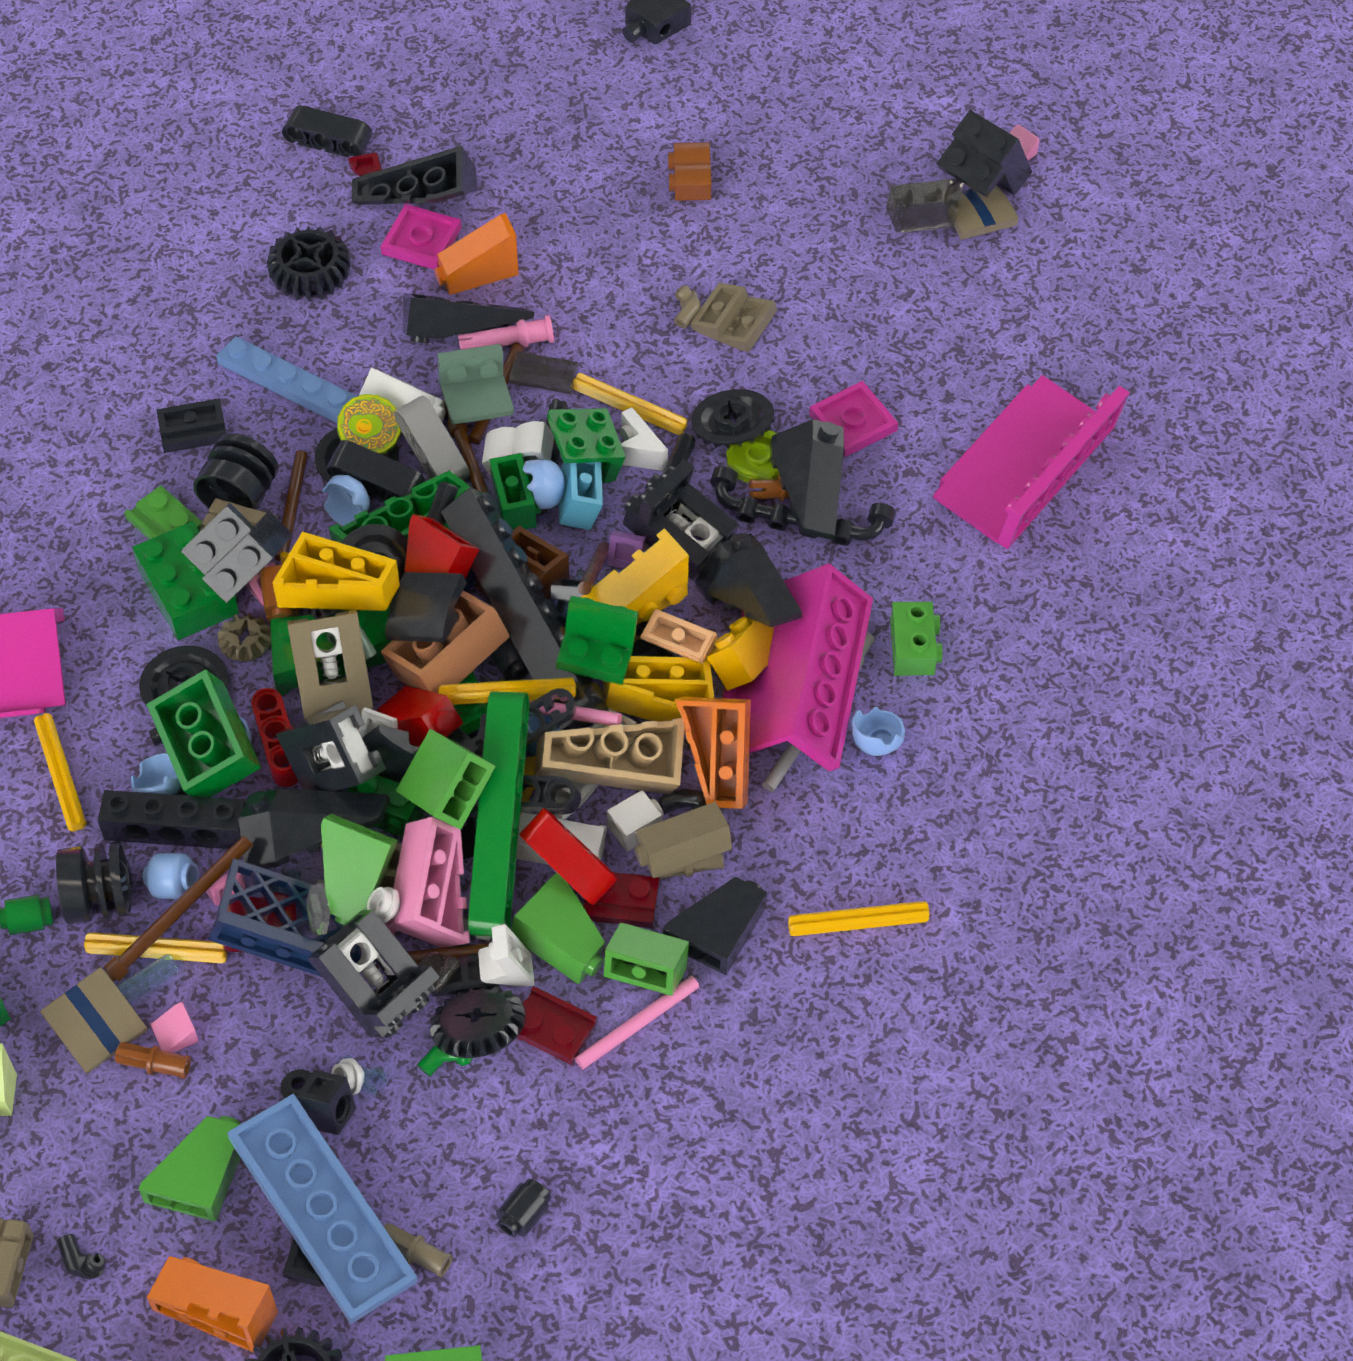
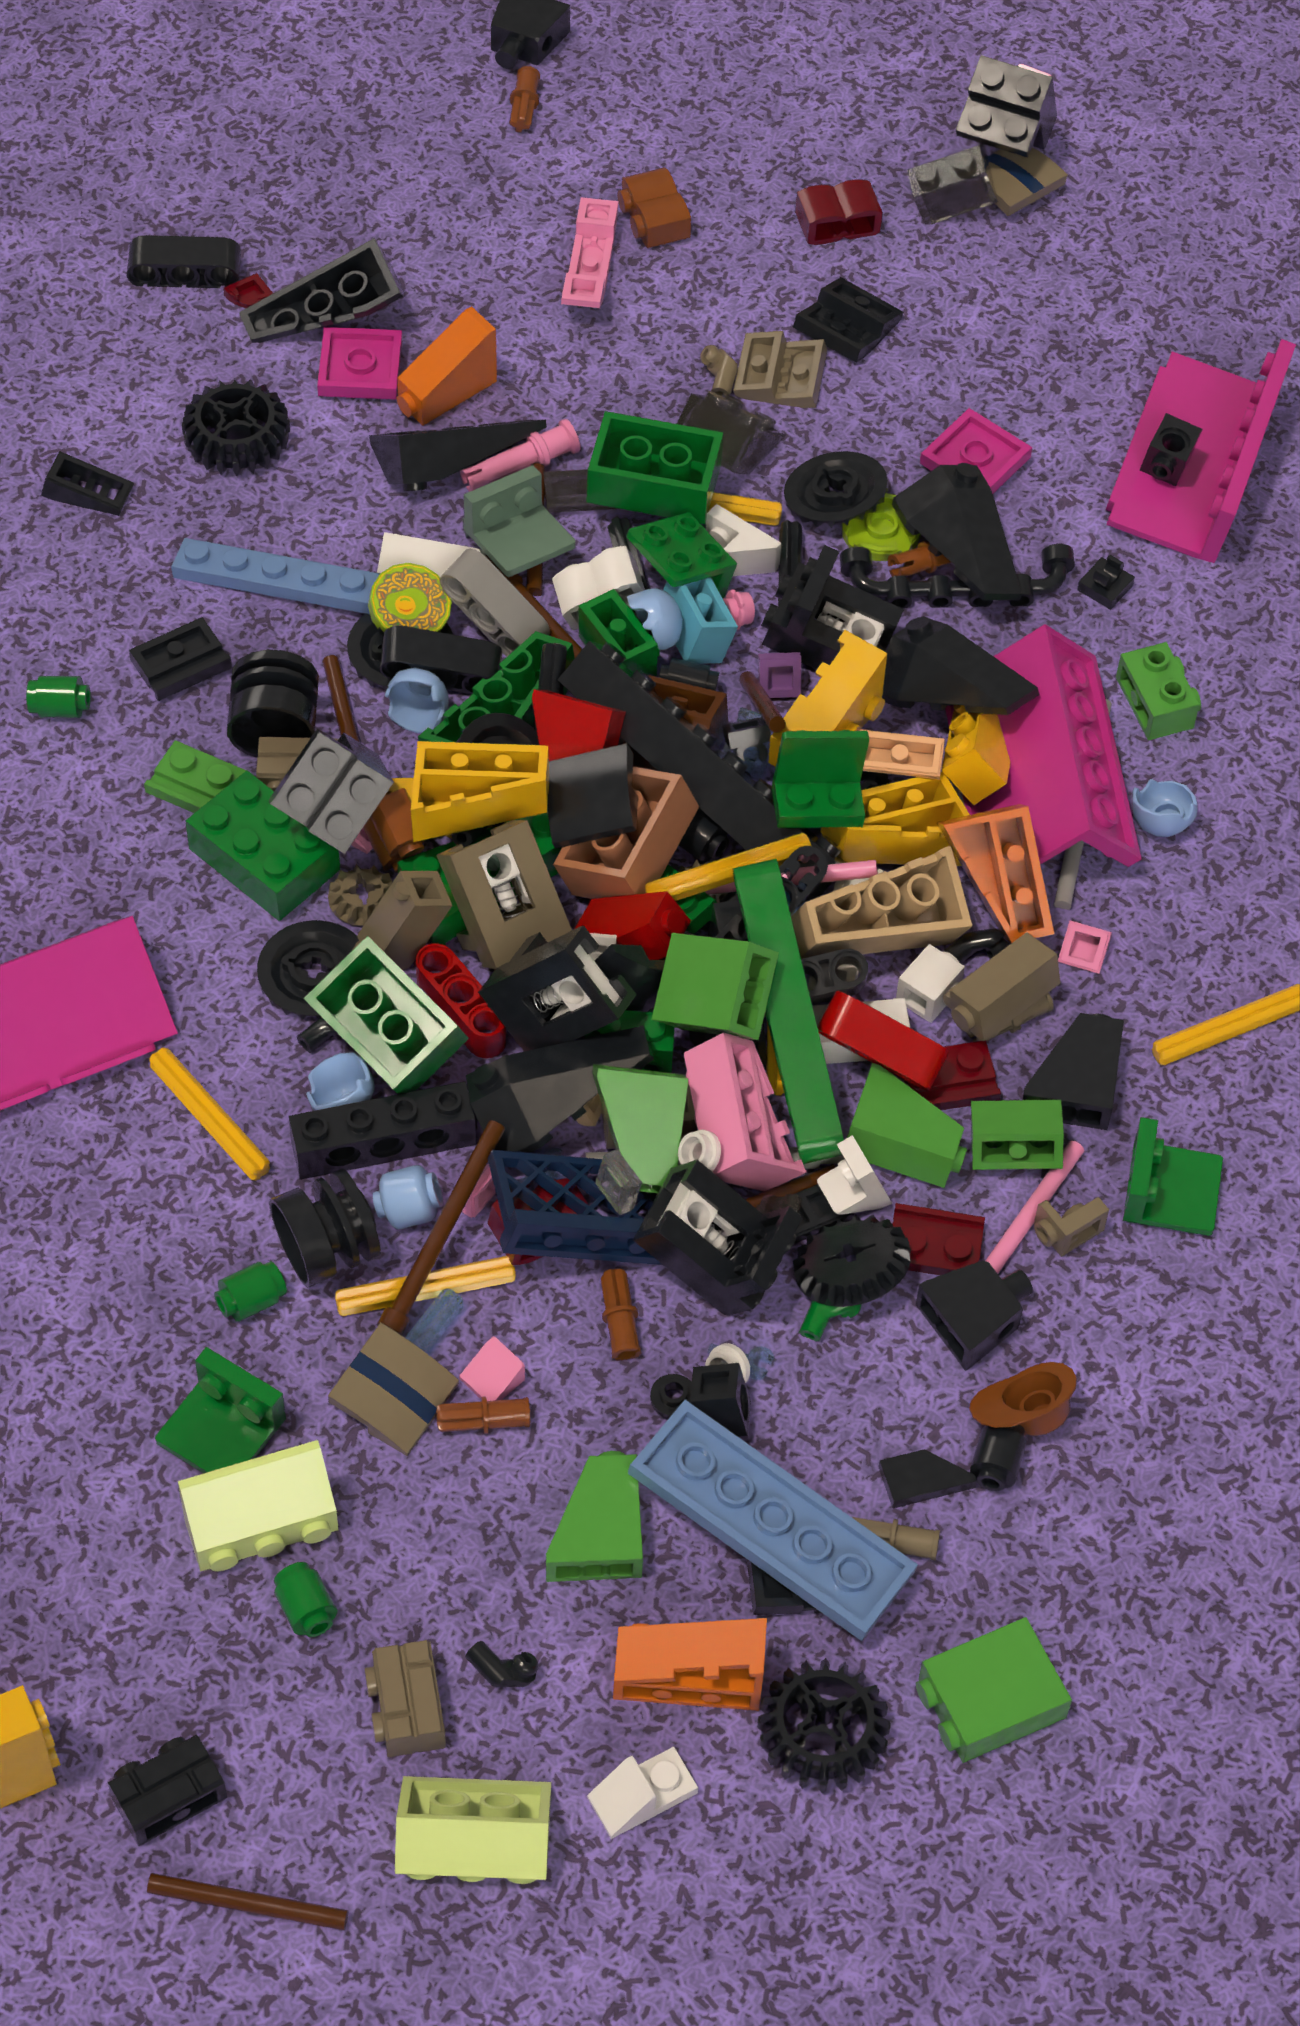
camera: 20 degrees left, 0 degrees up
(91, 431) = (58, 696): none -> green brick
(172, 262) = (71, 493): none -> black slope
(253, 663) = (407, 915): none -> dark tan brick
(287, 1013) = (620, 1315): none -> dark orange axle
(459, 1208) = (922, 1477): none -> black tile
(556, 1087) = (973, 1308): none -> black torso
(557, 535) = (690, 673): none -> black brick
(563, 1172) = (1033, 1398): none -> dark orange piece
(594, 367) = (654, 466): none -> green brick
(617, 492) = (741, 607): none -> bright pink plate
(629, 197) = (591, 253): none -> bright pink slope
(631, 67) = (524, 98): none -> dark orange axle
(661, 1046) = (1073, 1228): none -> dark tan bracket
(668, 354) = (746, 435): none -> clear smoke slope
(752, 1032) = (1171, 1184): none -> green bracket
(770, 825) = (1084, 947): none -> bright pink slope
(802, 290) = (848, 319): none -> black slope
(829, 206) = (838, 212): none -> dark red brick
(913, 543) = (1106, 582): none -> black tile
(1012, 446) = (1170, 449): none -> black brick

